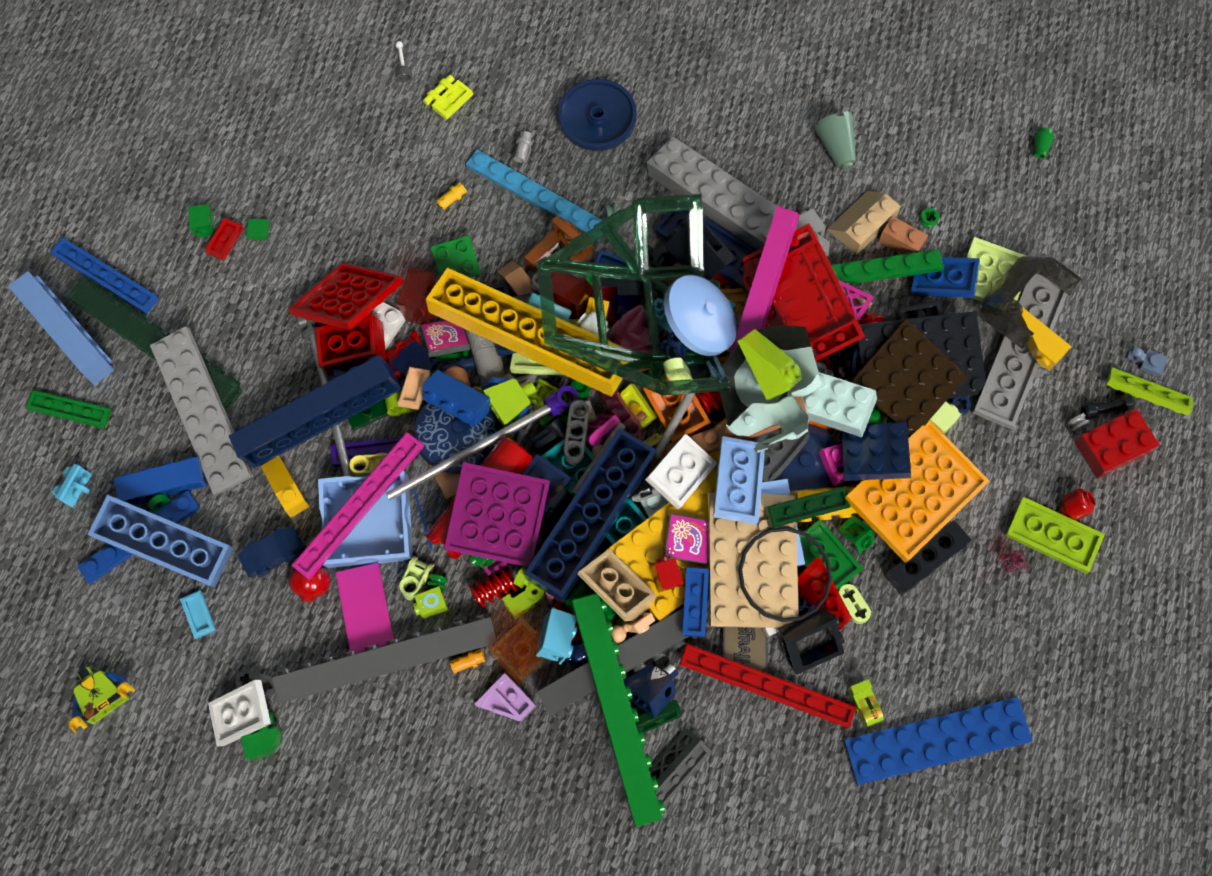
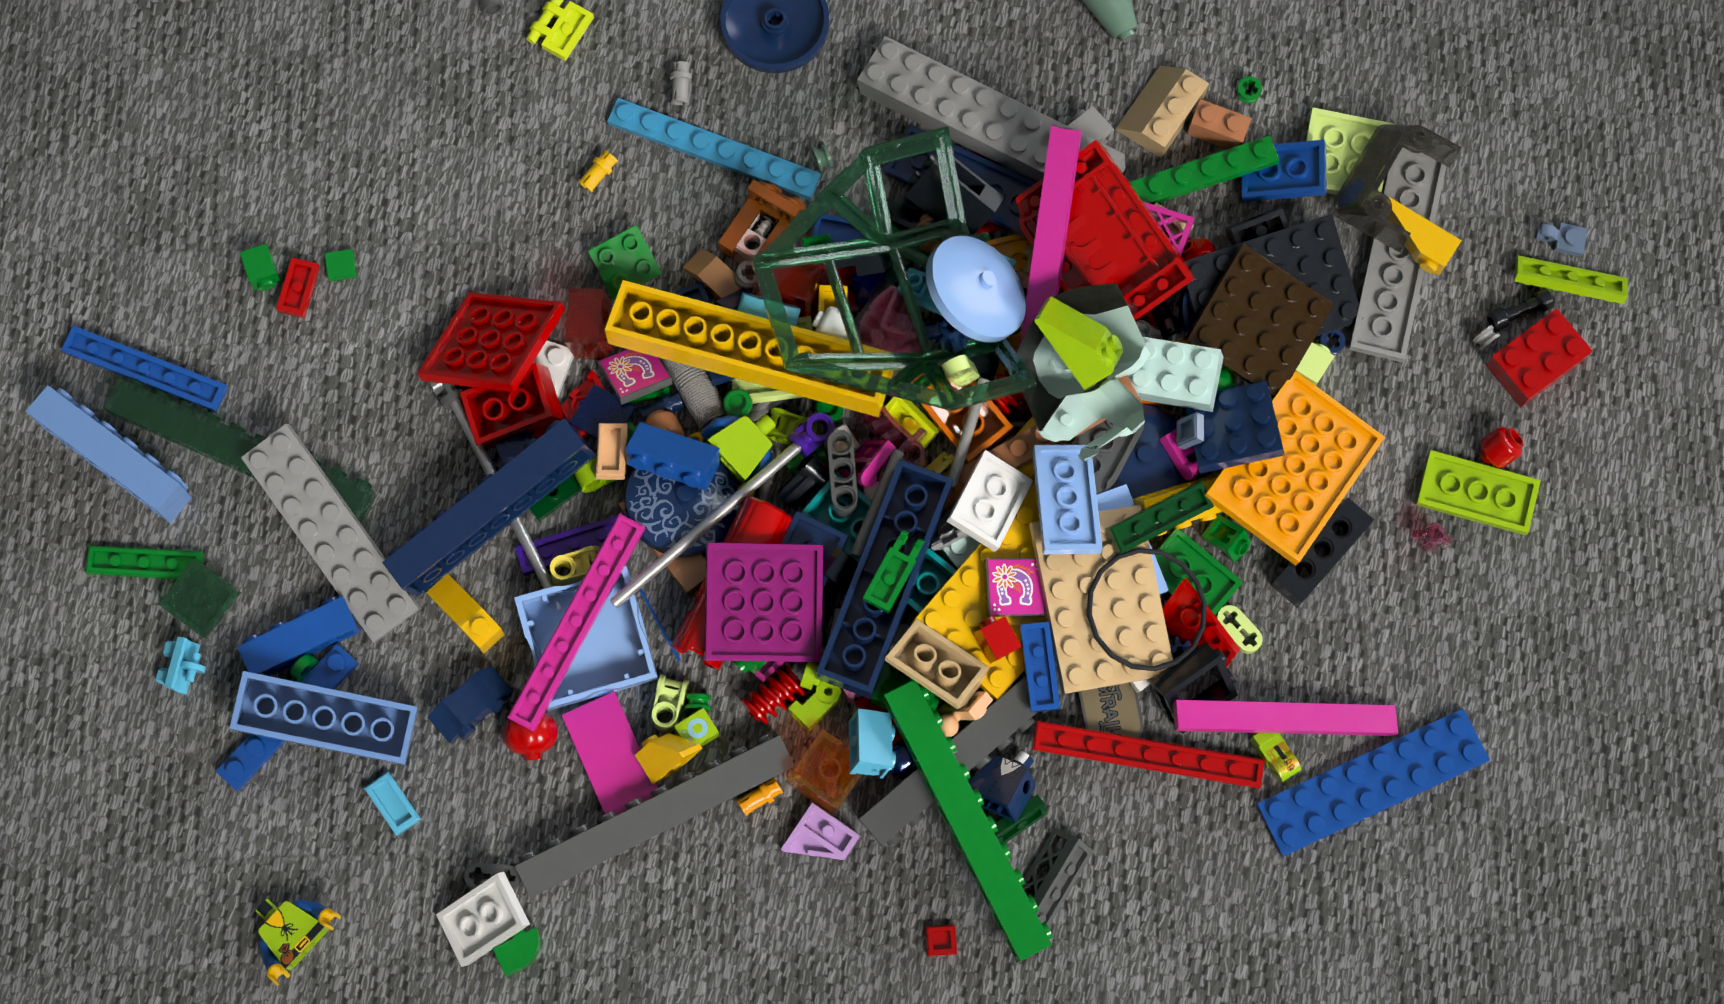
camera: 15 degrees left, 5 degrees up
(98, 440) = (199, 598): none -> clear green plate
(403, 616) = (665, 755): none -> yellow slope
(513, 369) = (738, 403): none -> green tile
(581, 798) = (941, 940): none -> red tile
(596, 510) = (892, 574): none -> green hinge
(842, 448) = (1190, 431): none -> sand blue tile
(877, 677) = (1285, 718): none -> dark pink tile

